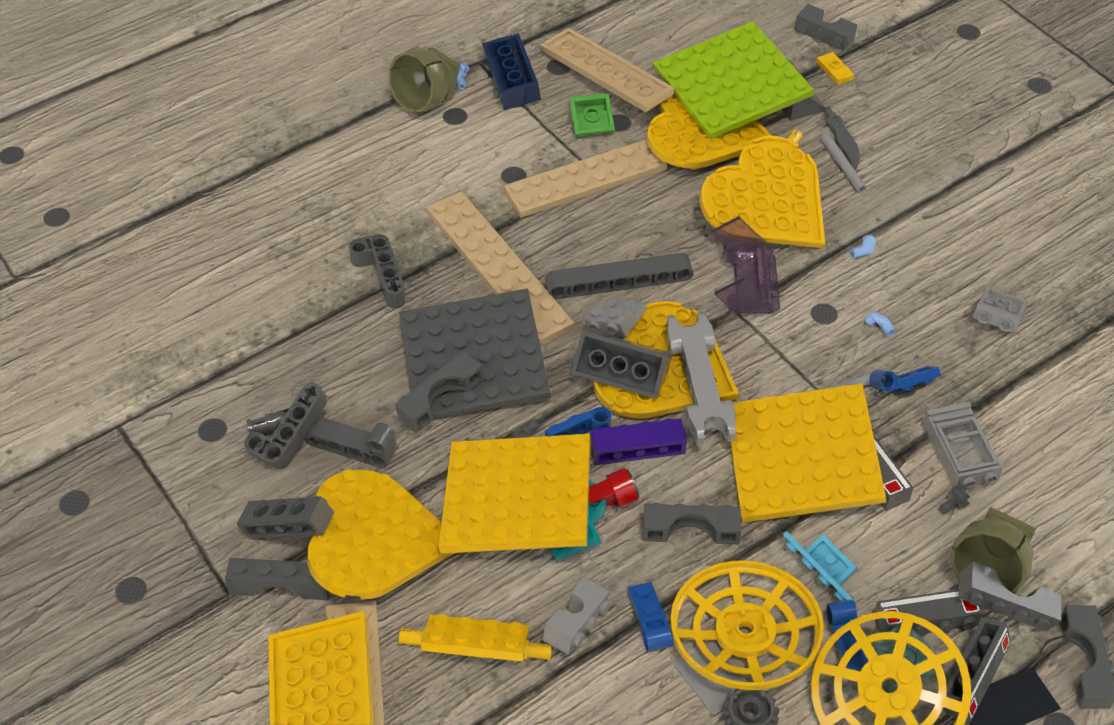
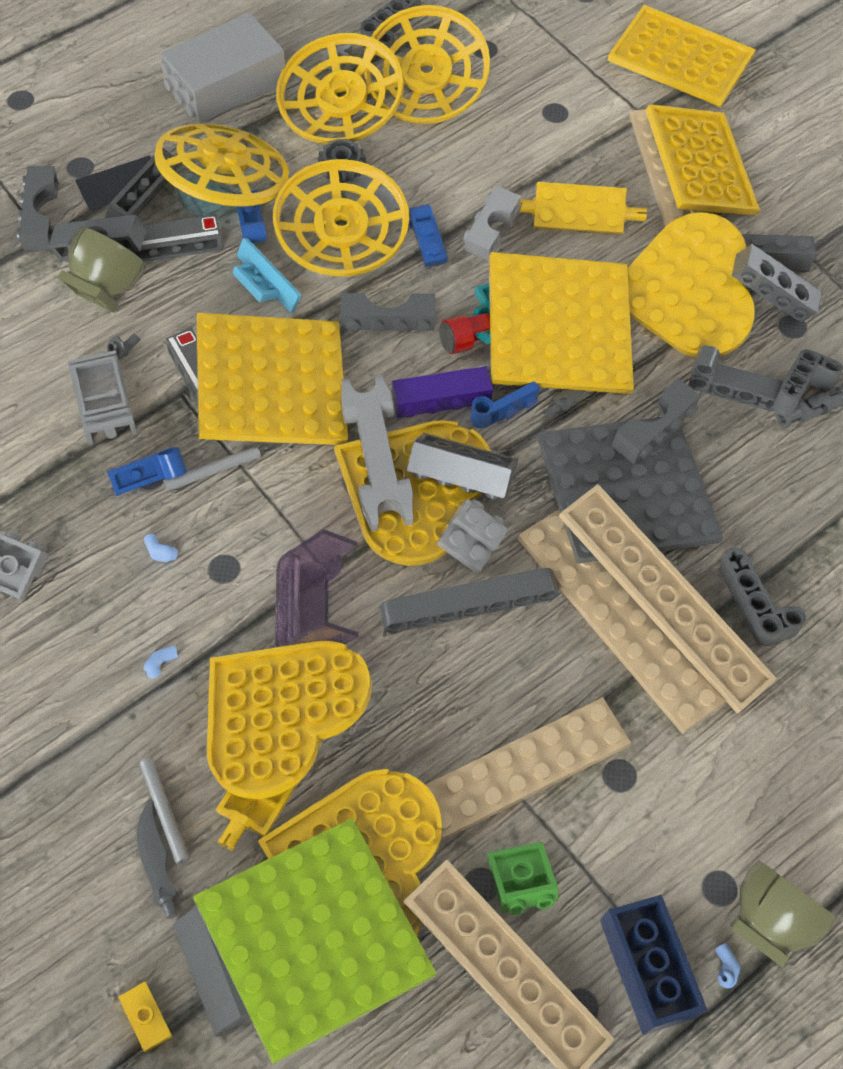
camera: 175 degrees right, 10 degrees up
(463, 261) = (668, 598): none -> tan plate

